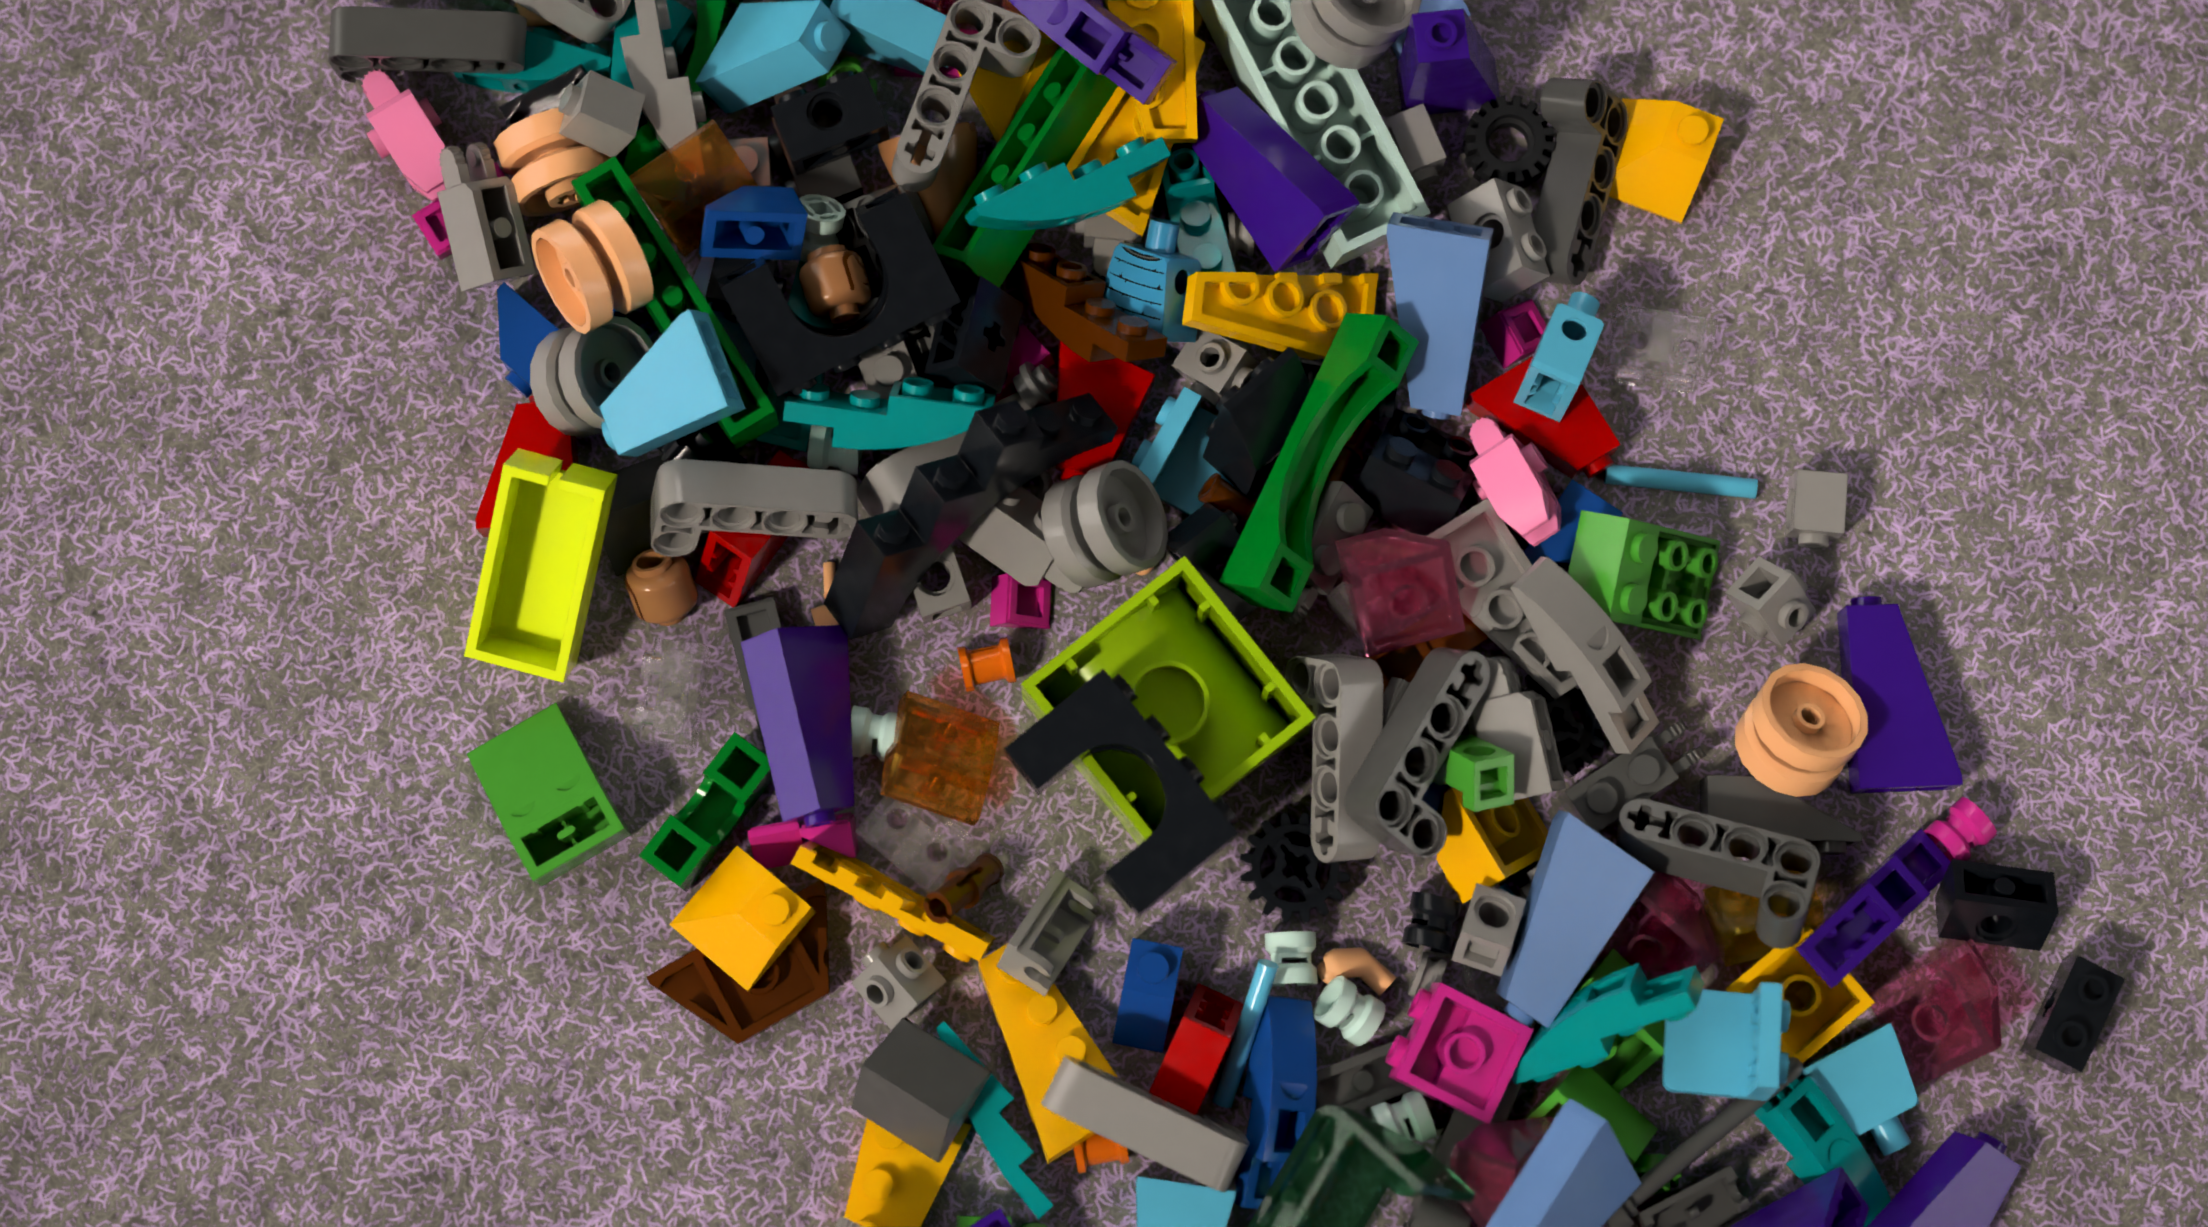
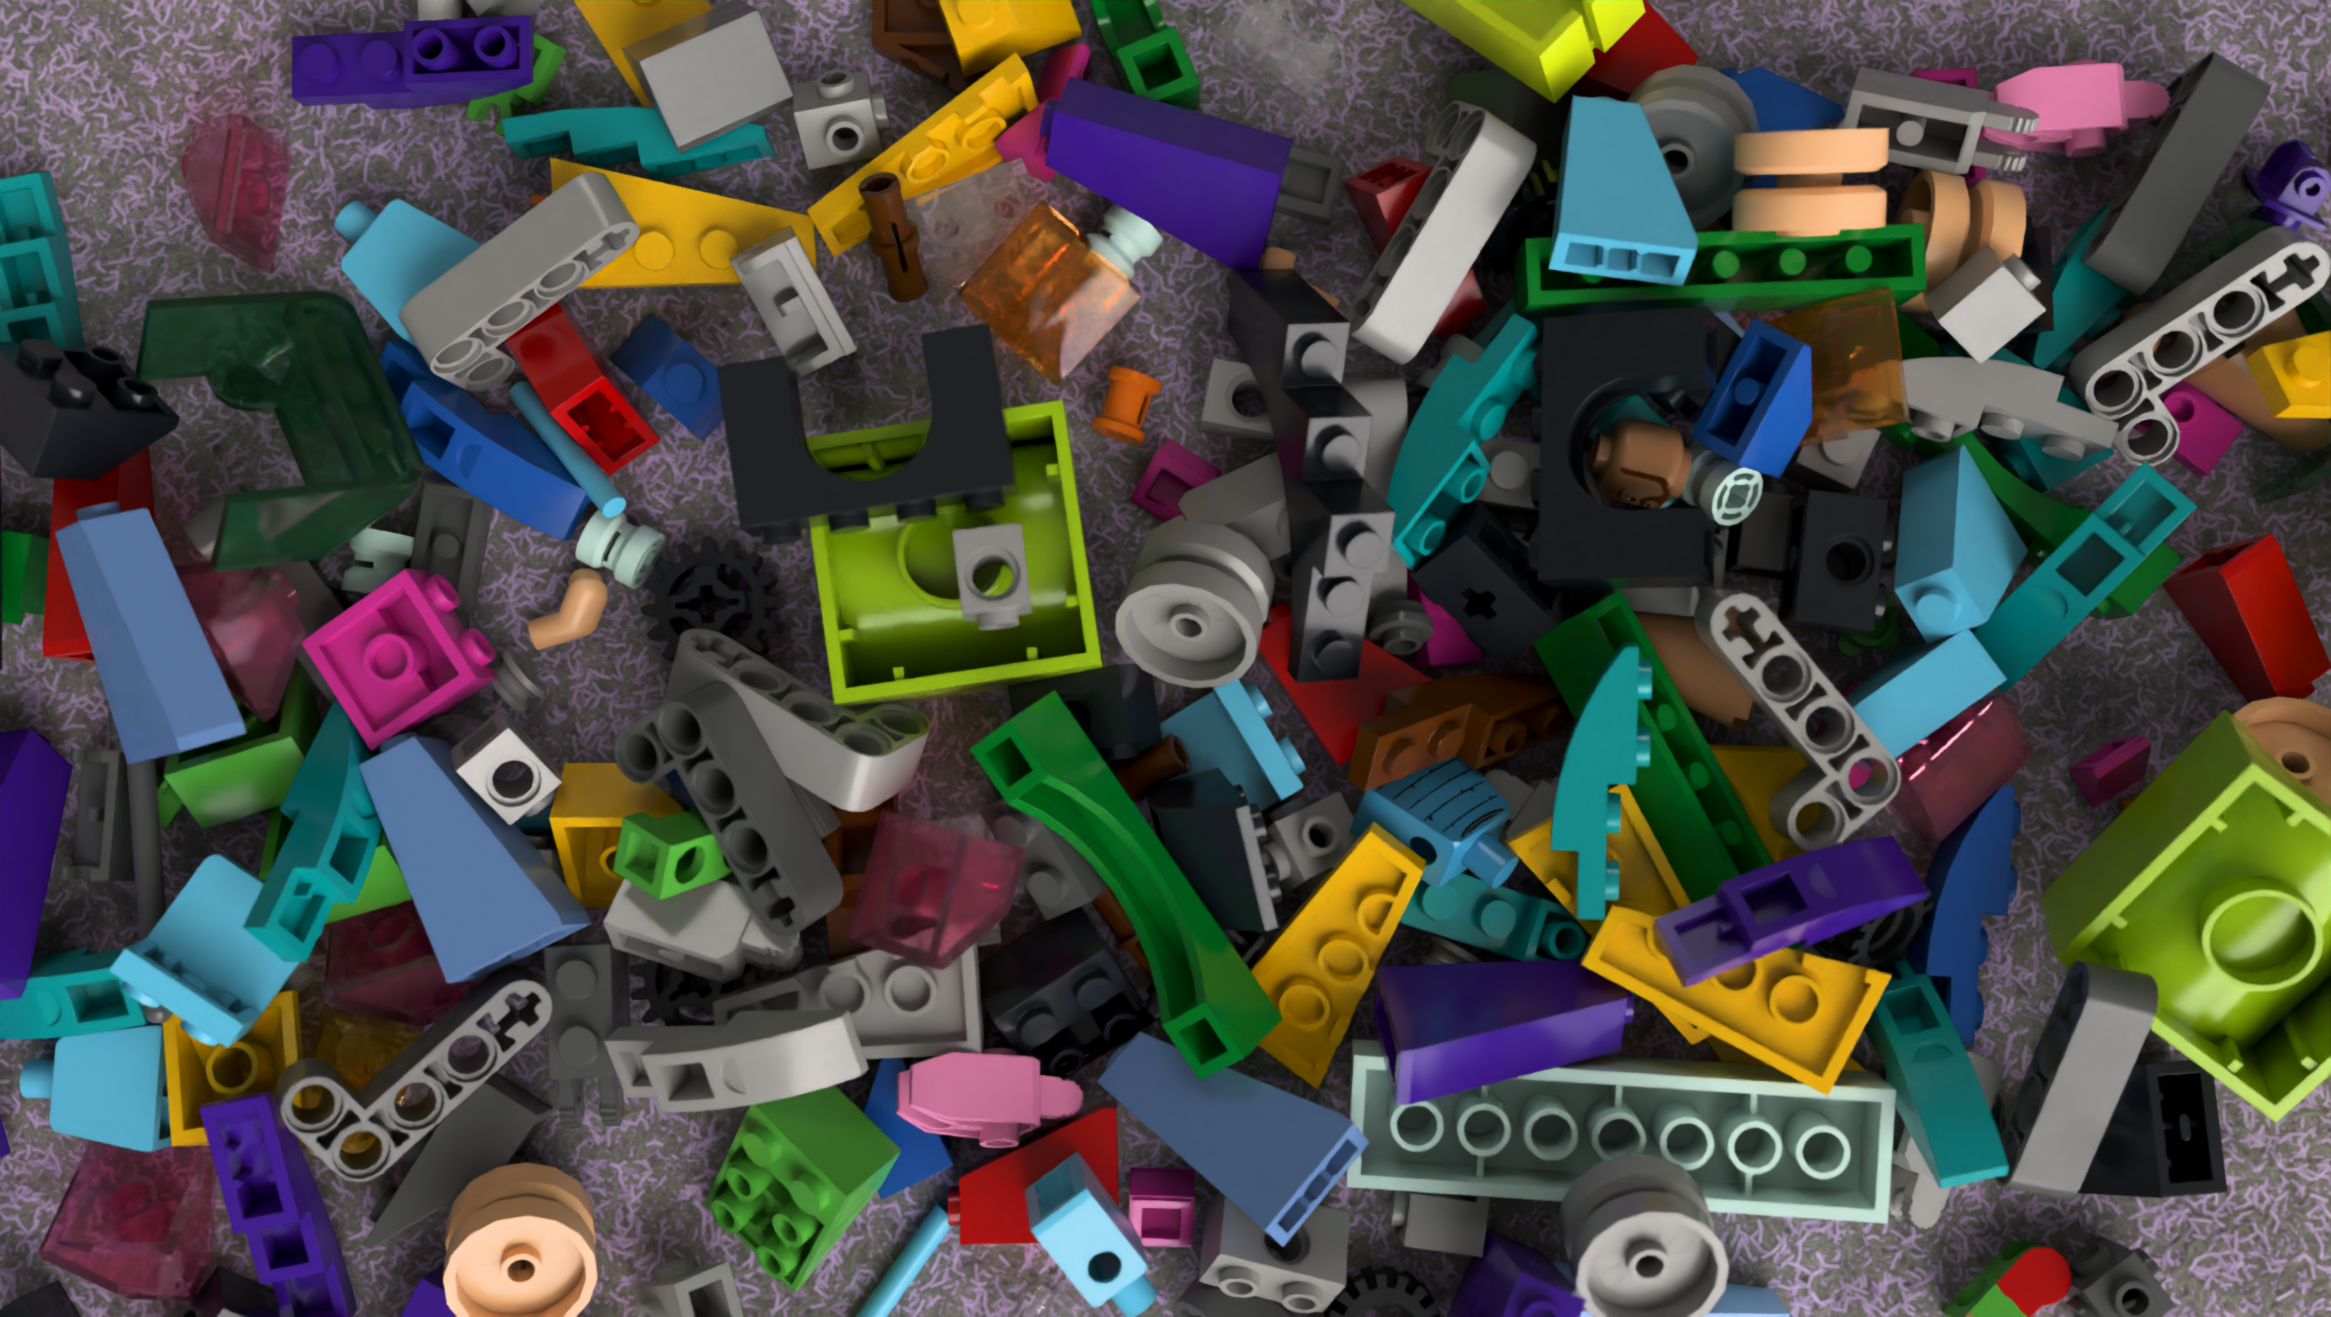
camera: 120 degrees right, 5 degrees up
(660, 588) = (1405, 102): medium nougat head -> none
(1164, 678) = (987, 546): none -> light grey brick
(1348, 1010) = (520, 578): light aqua wheel -> none
(1432, 922) = (567, 719): black wheel -> none

